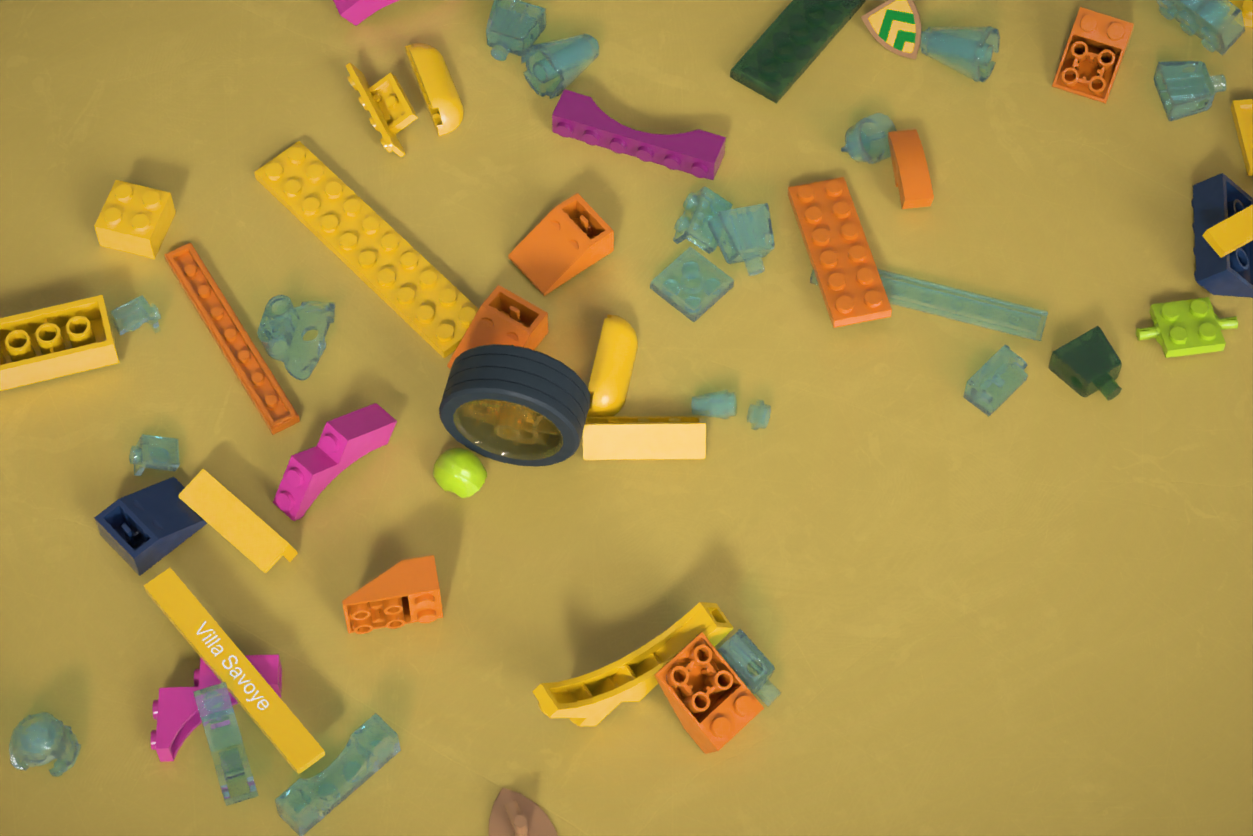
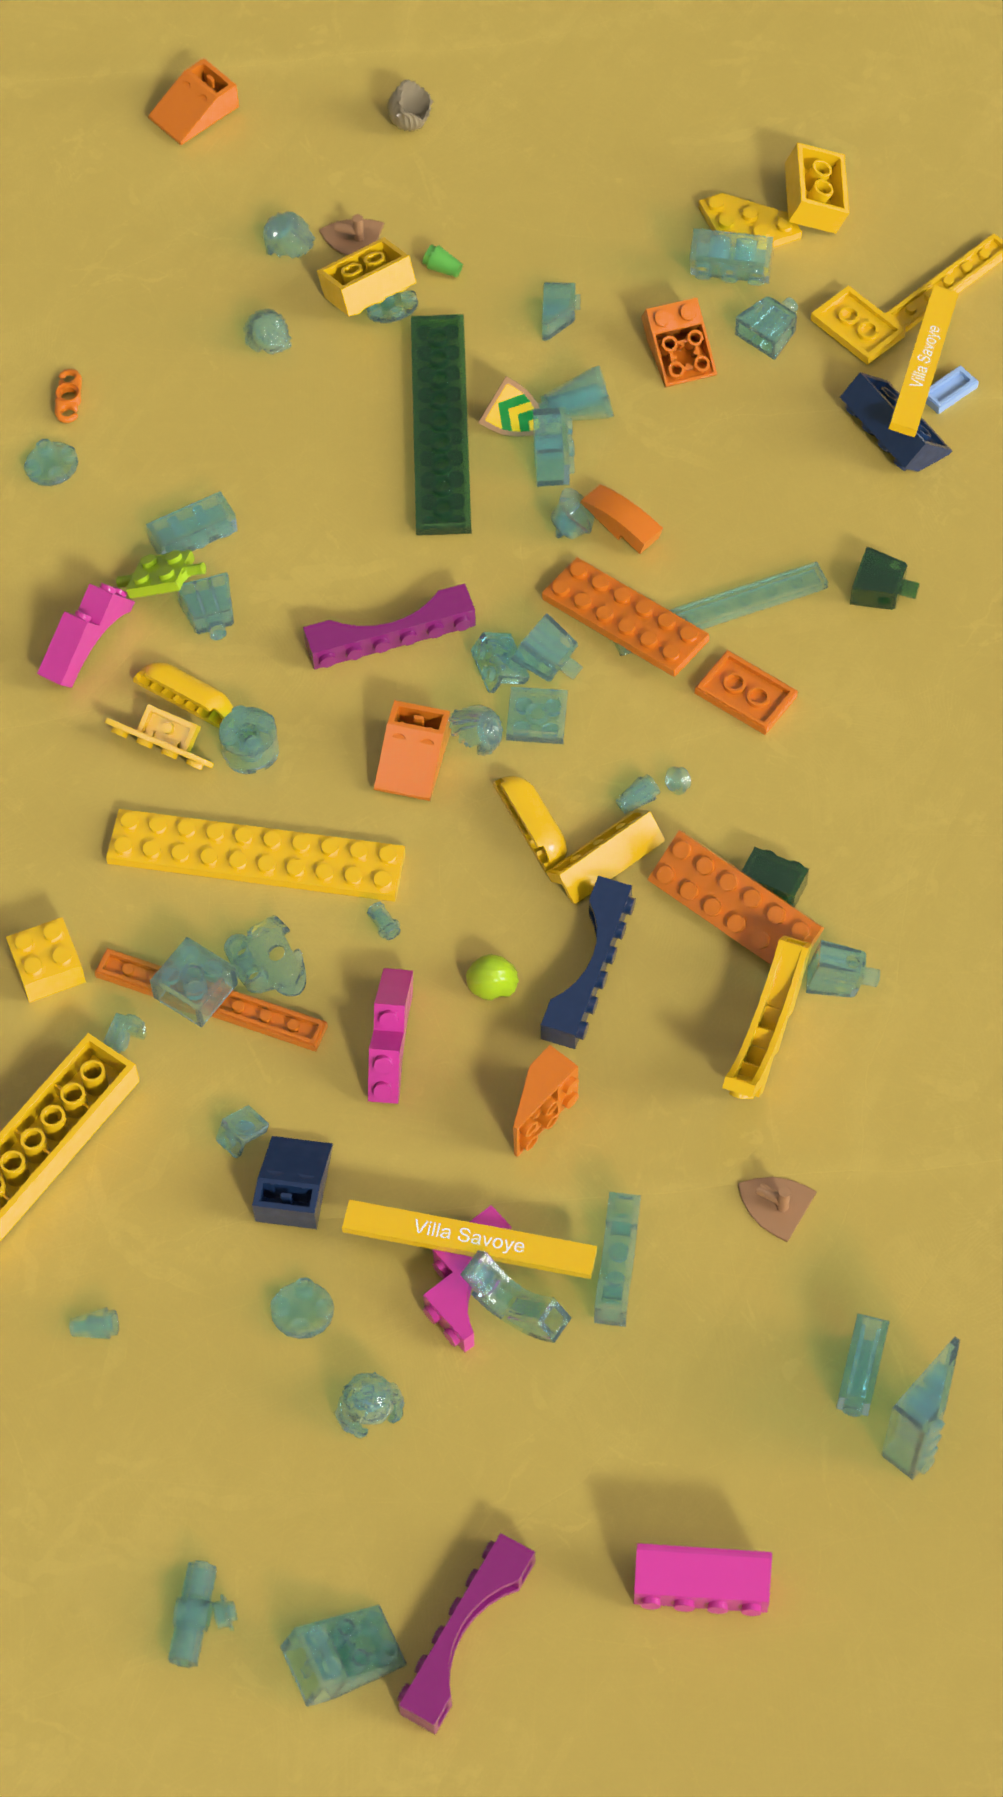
camera: 35 degrees left, 0 degrees up
(67, 631) = (302, 1309): none -> clear light blue dish
(221, 311) = (194, 982): none -> clear light blue brick
(236, 522) = (358, 1133): yellow panel -> none
(416, 374) = (386, 924): none -> clear light blue pin
(443, 151) = (249, 739): none -> clear light blue brick
(492, 543) = (567, 1012): none -> dark blue arch
(504, 321) = (432, 856): orange slope -> none
(515, 405) = (509, 891): black wheel -> none
(558, 63) = (276, 611): clear light blue cone -> none
(628, 261) = (477, 727): none -> clear light blue hair
(707, 695) = (838, 1007): orange slope -> none
(709, 542) = (729, 898): none -> orange plate
(764, 552) = (777, 874): none -> clear green brick
(887, 382) = (746, 692): none -> orange tile
(899, 72) = (553, 446): none -> clear light blue brick
(996, 380) = (825, 638): clear light blue hinge -> none
(1187, 327) = (923, 508): lime plate -> none

